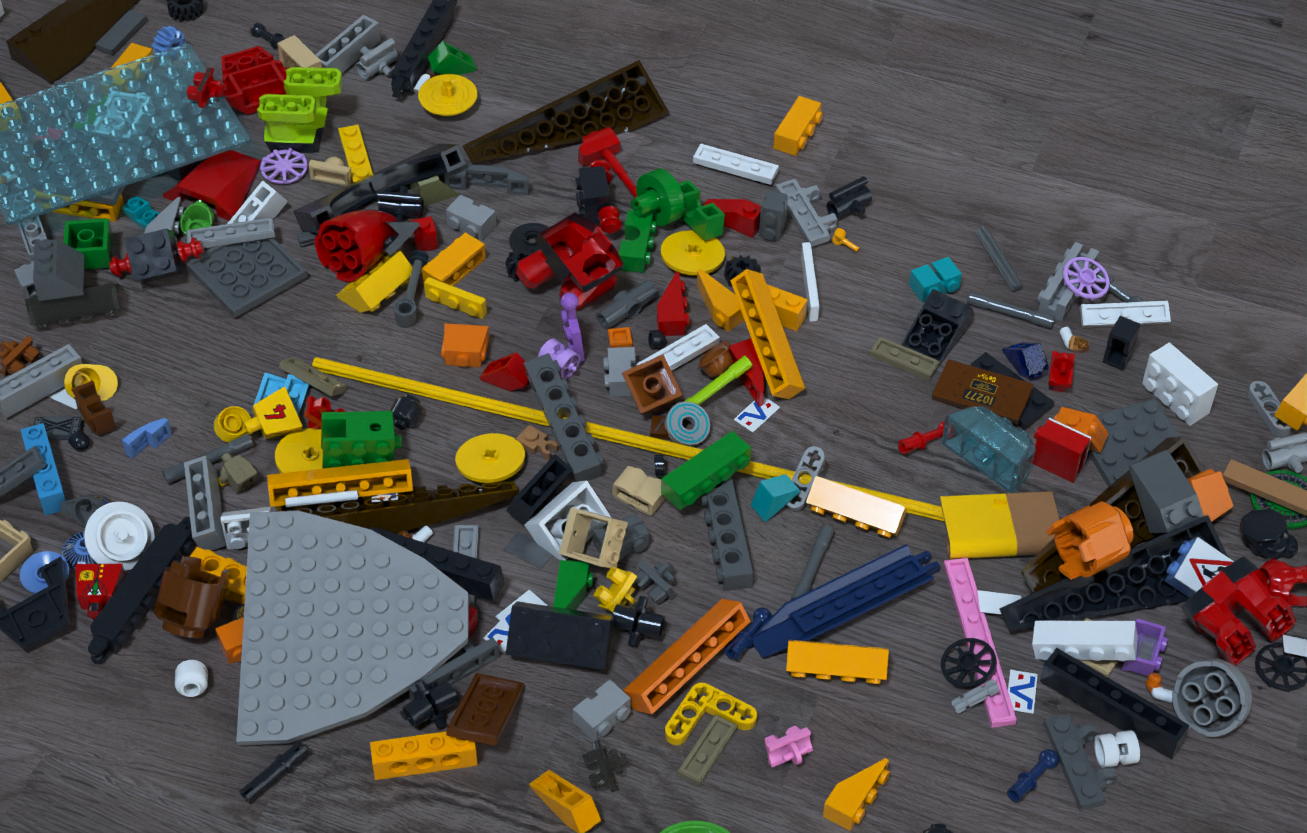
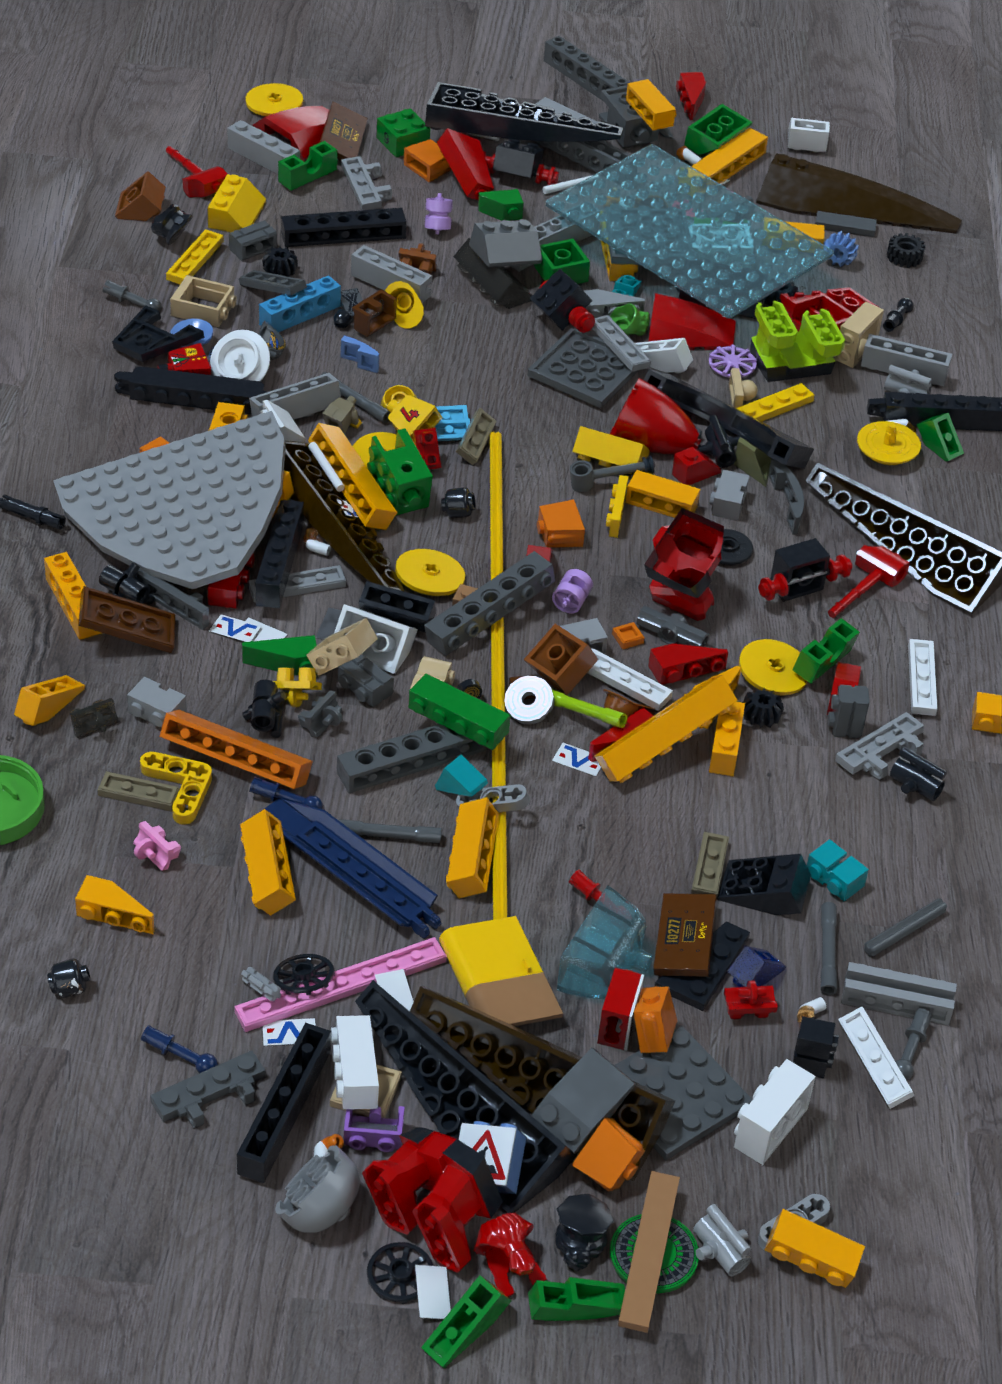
camera: 70 degrees right, 5 degrees down
(190, 598) = (181, 408): reddish brown piece -> none
(191, 678) = (111, 440): white head -> none
(206, 87) = (772, 269): red hips -> none
(401, 232) = (665, 437): black slope -> none
(559, 635) = (223, 650): black brick -> none
(572, 332) = (613, 577): medium lavender plate -> none
(635, 252) = (746, 622): green arch -> none
(656, 339) = (637, 659): black hinge -> none
(659, 194) = (818, 611): green piece -> none
(810, 281) = (777, 763): white tile -> none
(839, 238) = (862, 781): light orange hand -> none
(1086, 278) = (899, 999): lavender wheel -> none
(1092, 539) = (470, 1025): orange piece -> none
(1116, 749) = (227, 1114): white wheel -> none

